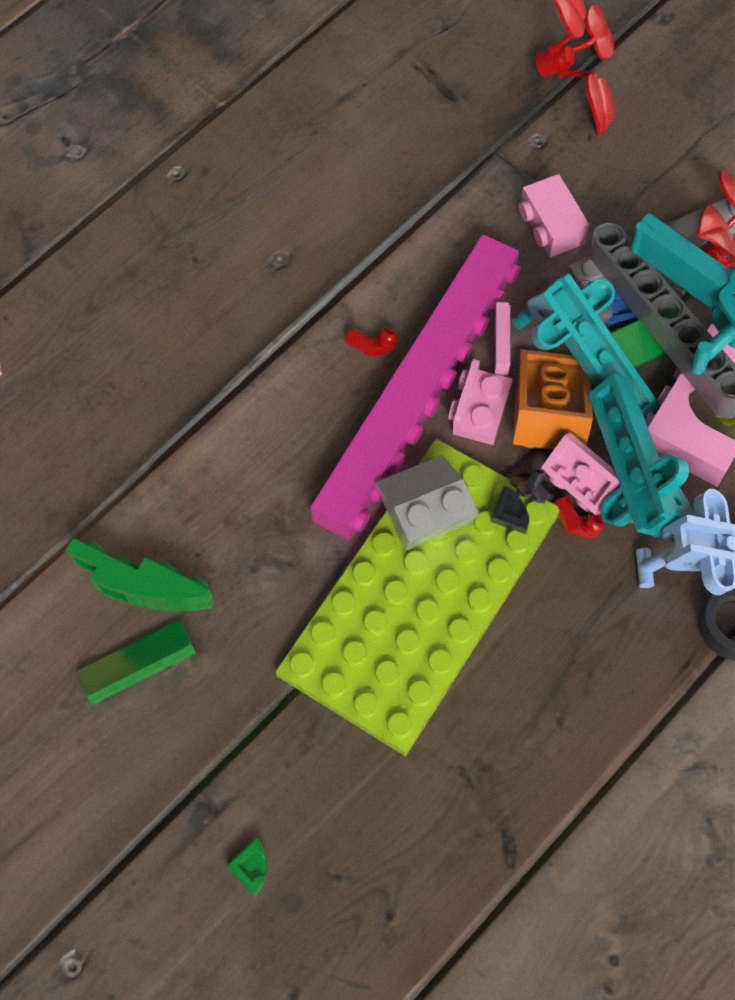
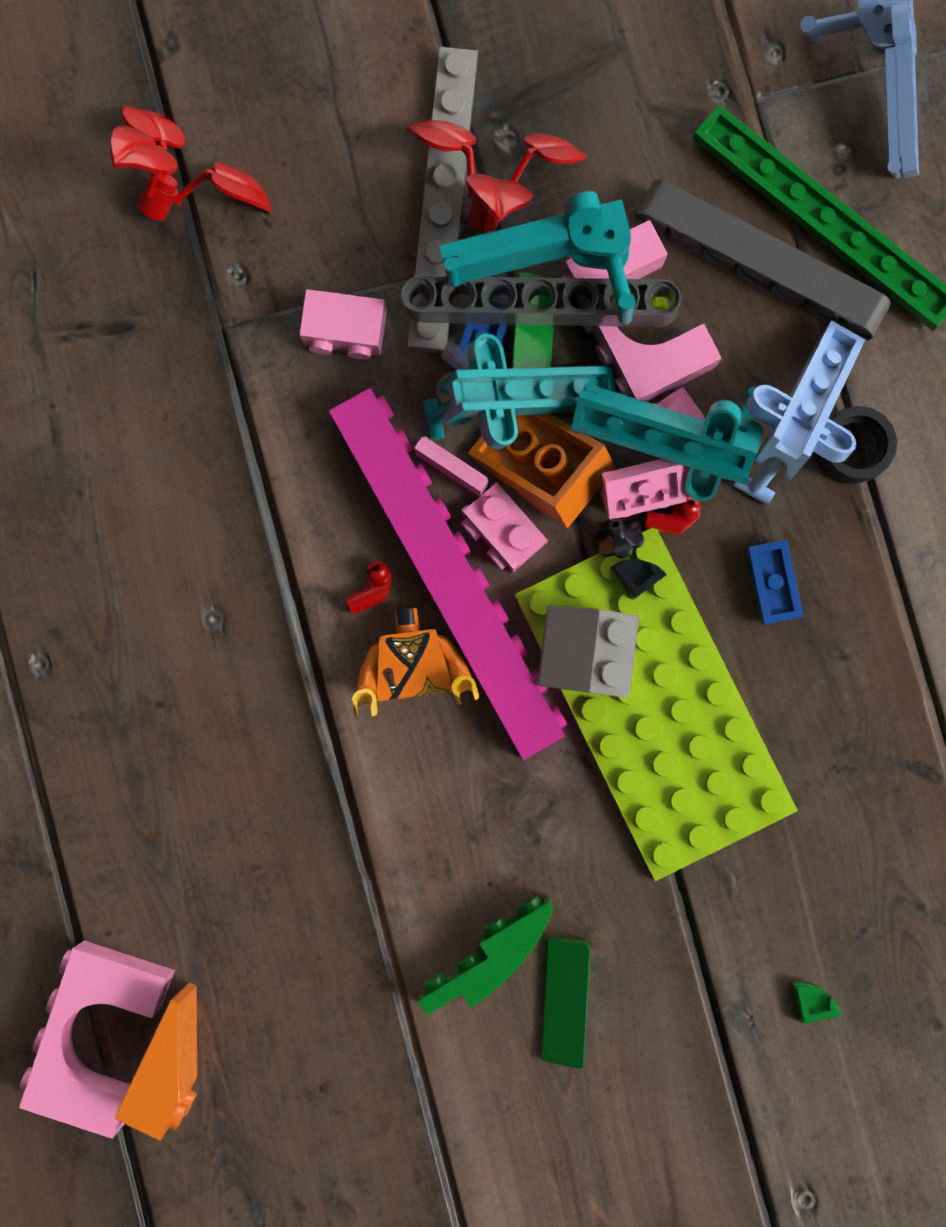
camera: 60 degrees left, 20 degrees up
(329, 393) = (411, 665): none -> orange torso
(580, 623) = (774, 582): none -> blue plate

